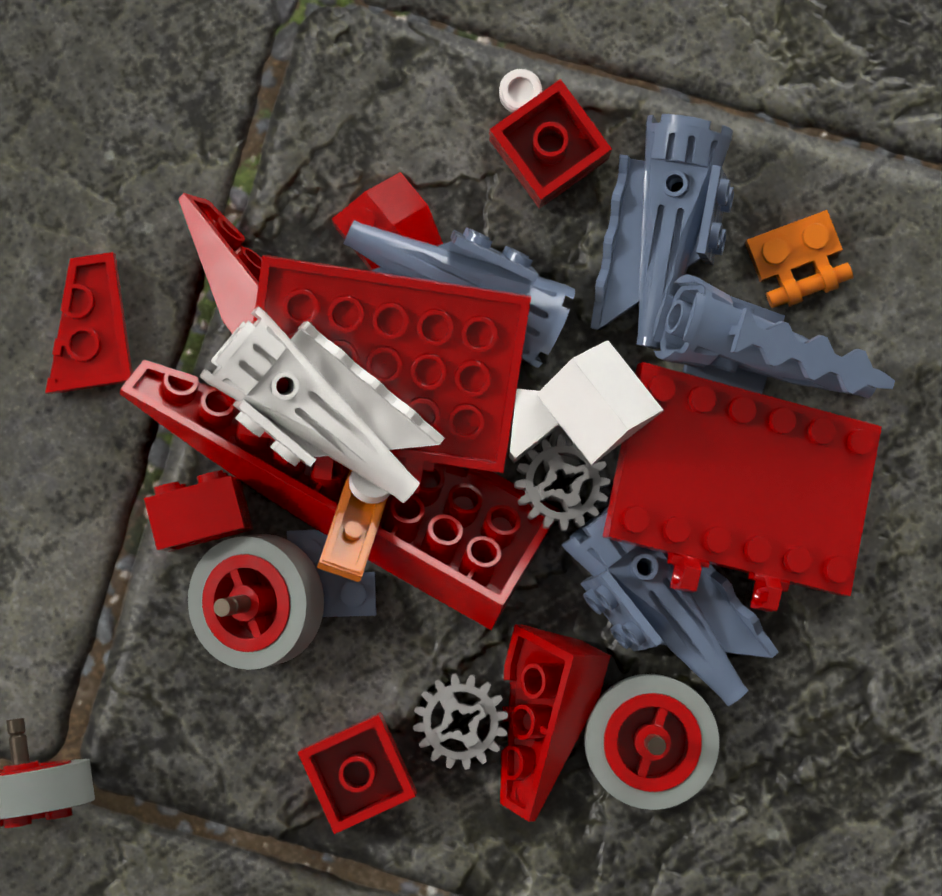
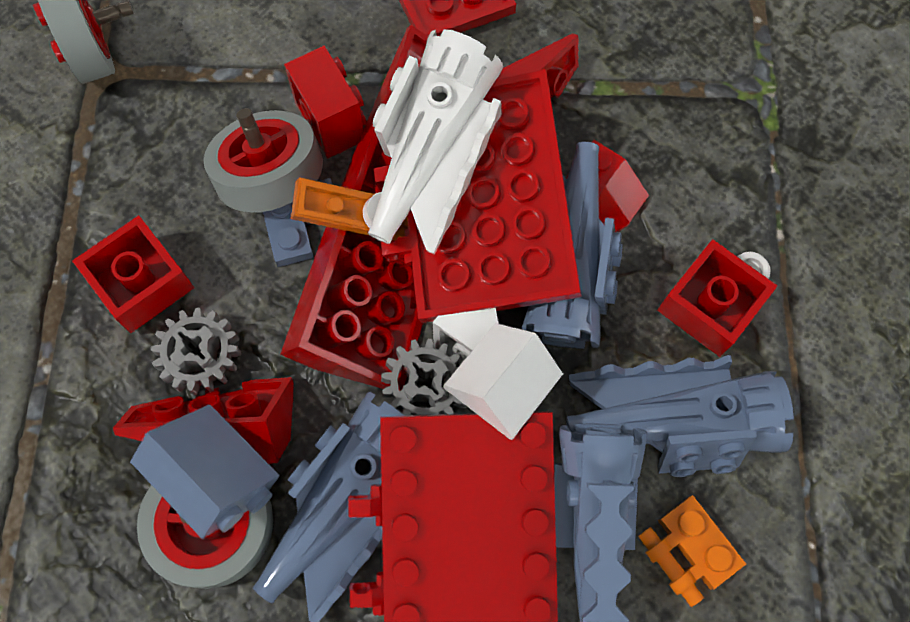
camera: 70 degrees right, 15 degrees down
(617, 720) = (205, 470): none -> sand blue brick

